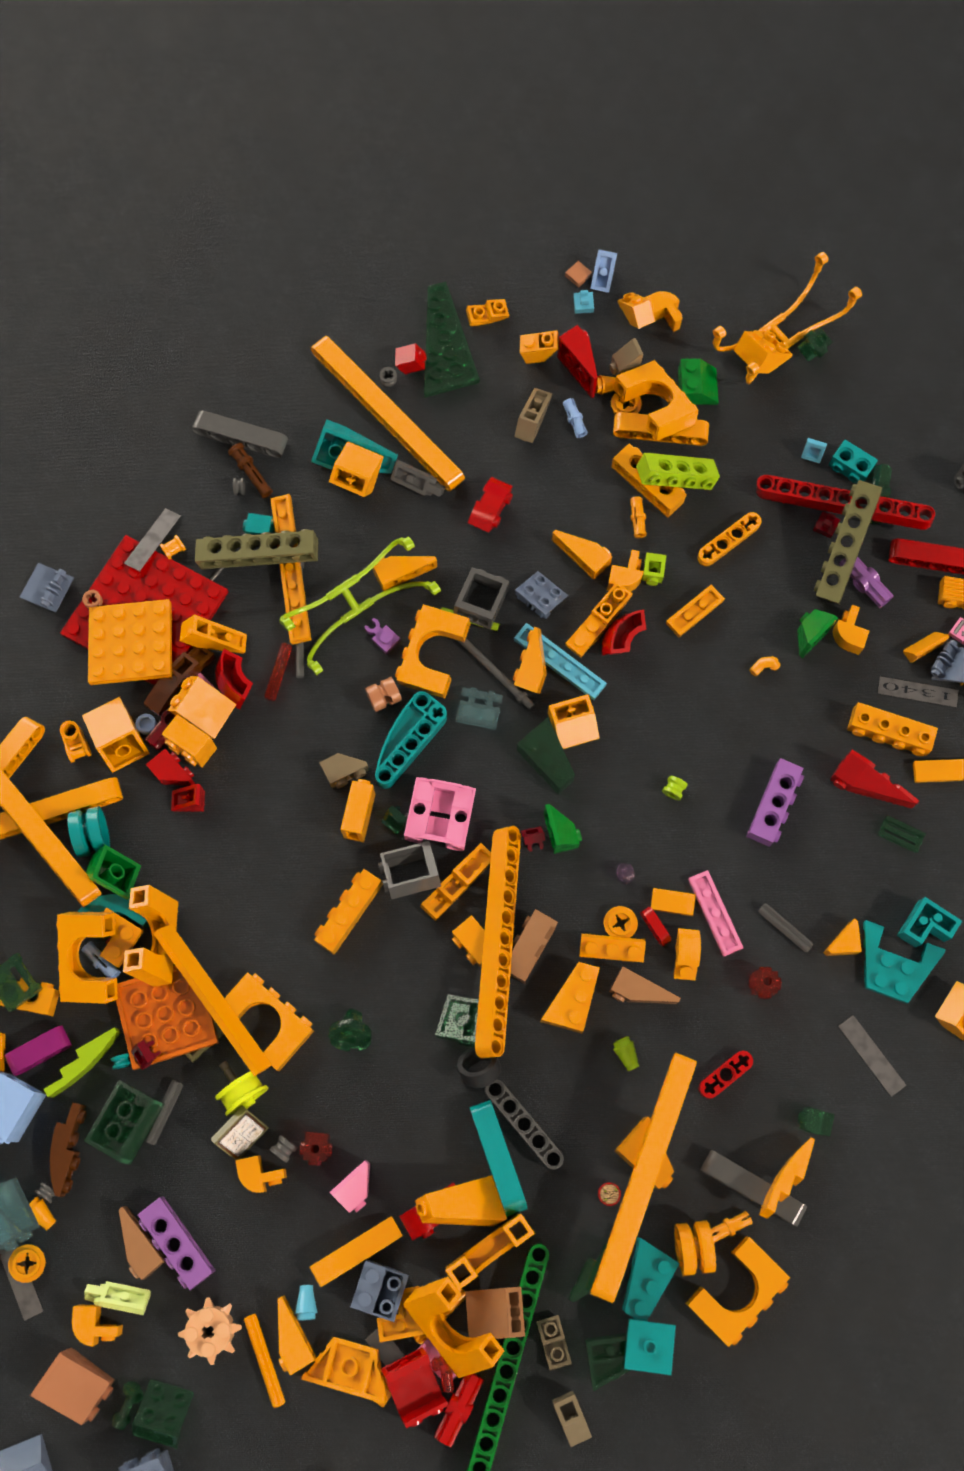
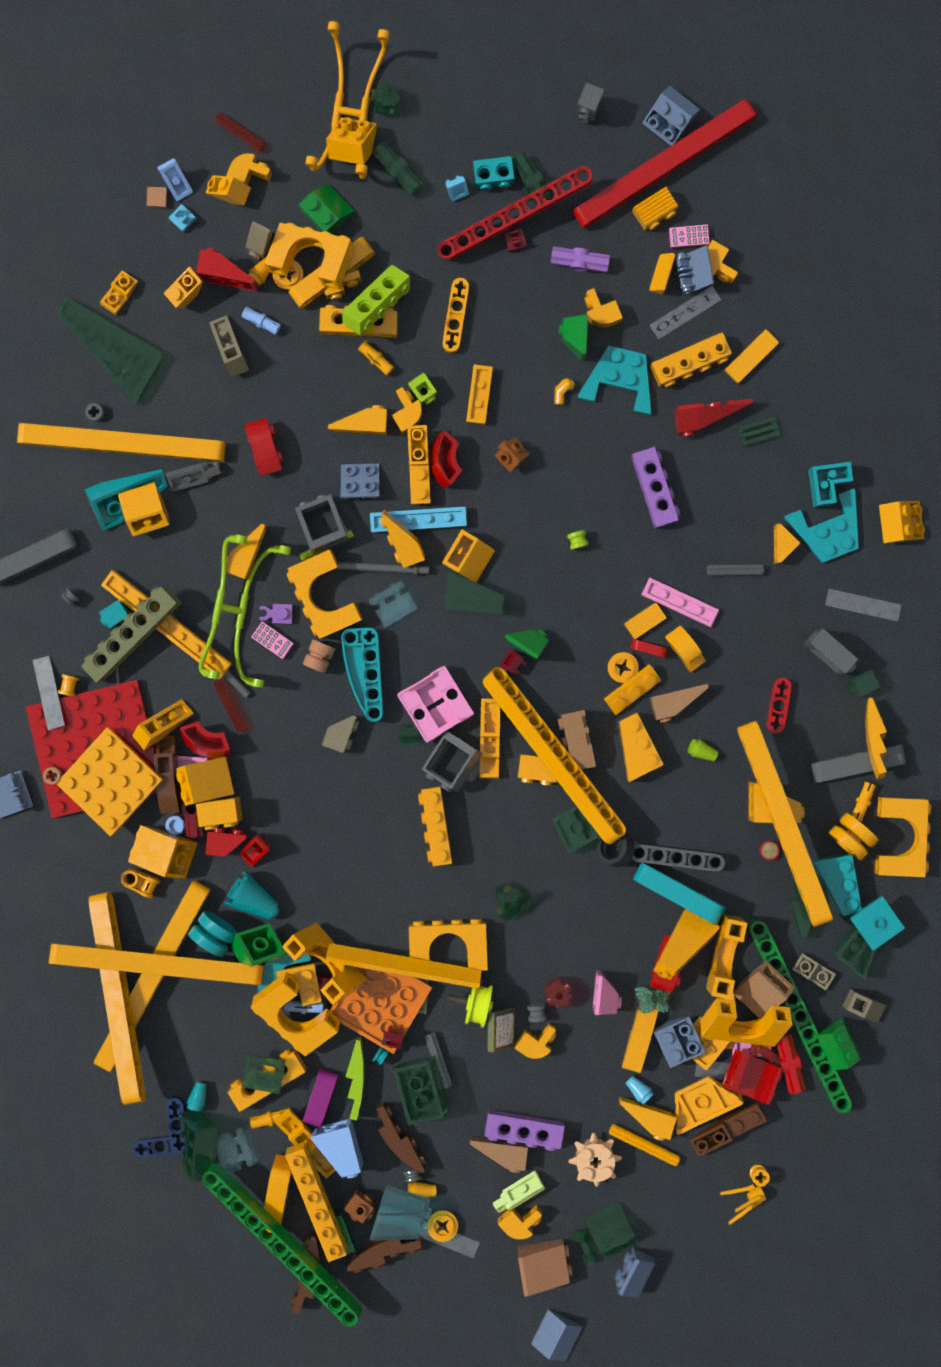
camera: 40 degrees left, 15 degrees up
(147, 834) = (251, 898): none -> teal cone
(245, 463) = (57, 576): reddish brown pin -> none
(350, 1416) = (727, 1128): none -> reddish brown slope
(358, 810) = (379, 753): light orange brick -> none
(359, 652) = (272, 640): none -> tile
(391, 1231) = (652, 999): none -> clear green animal
(410, 358) = (99, 385): red brick -> none
(517, 1433) = (839, 1045): none -> green slope
(625, 873) = (596, 630): clear purple plate -> none
(668, 444) = (350, 280): none -> light orange slope
(680, 675) = (511, 454): none -> dark orange brick
(682, 281) = (240, 132): none -> clear red axle
(757, 985) = (747, 625): clear red brick -> none
(779, 400) = (397, 168): none -> clear green piece
(811, 1067) = (831, 652): none -> dark grey window
(827, 691) = (622, 370): none -> teal wing
(871, 494) = (533, 197): olive brick -> none

